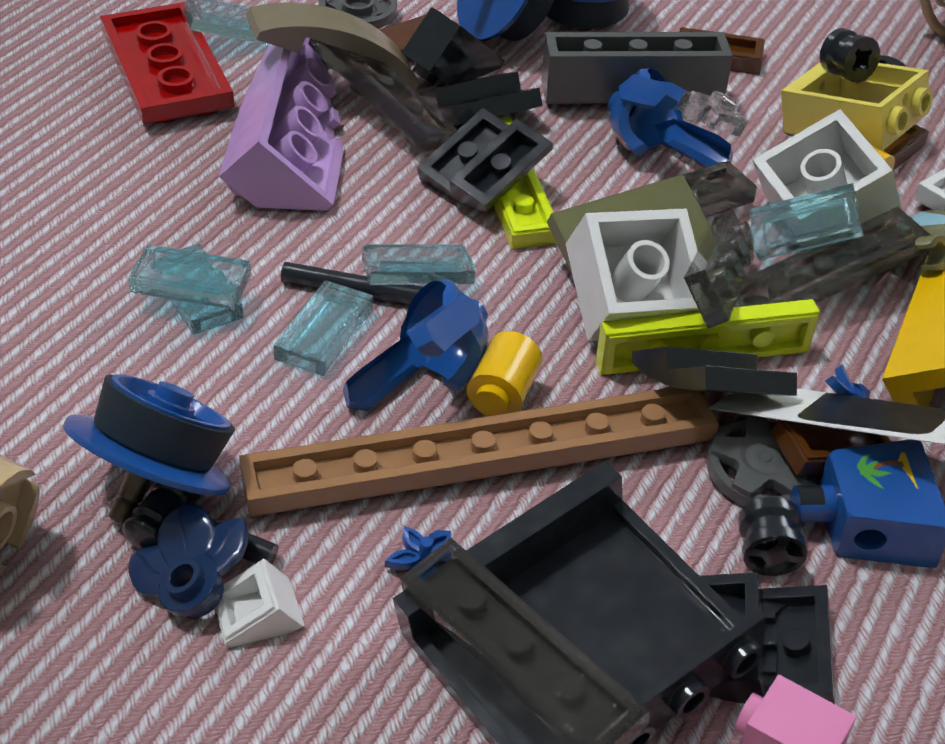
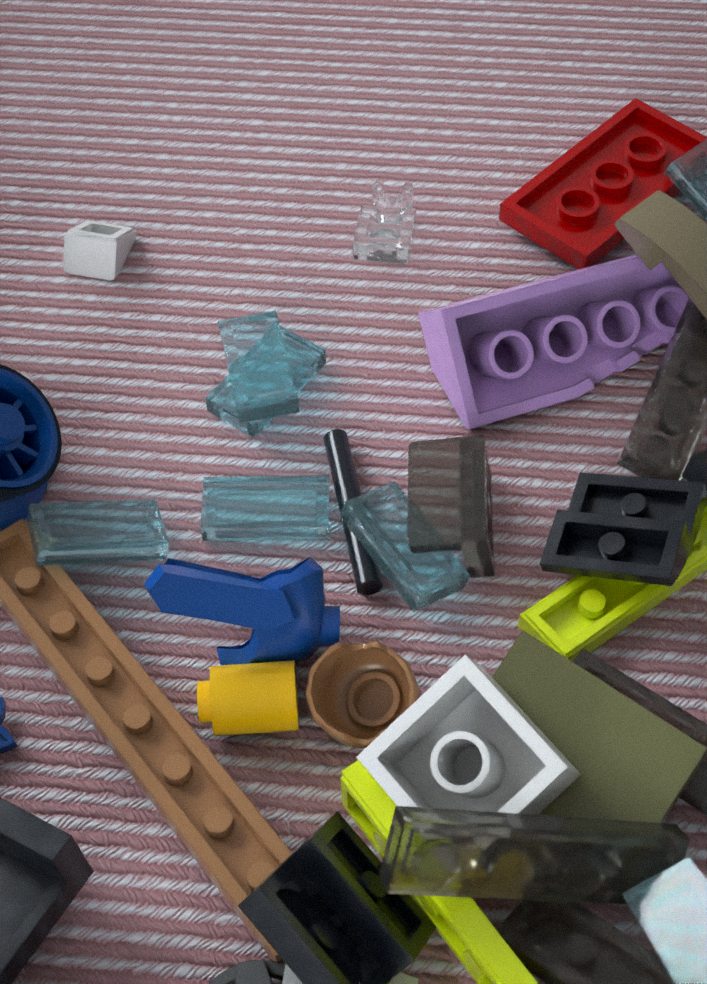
camera: 70 degrees right, 10 degrees up
(100, 175) = (386, 227): none -> clear plate
(285, 417) = (96, 532): none -> clear light blue tile
(405, 218) = (452, 500): none -> clear smoke panel
(541, 313) = (359, 691): none -> medium nougat hair

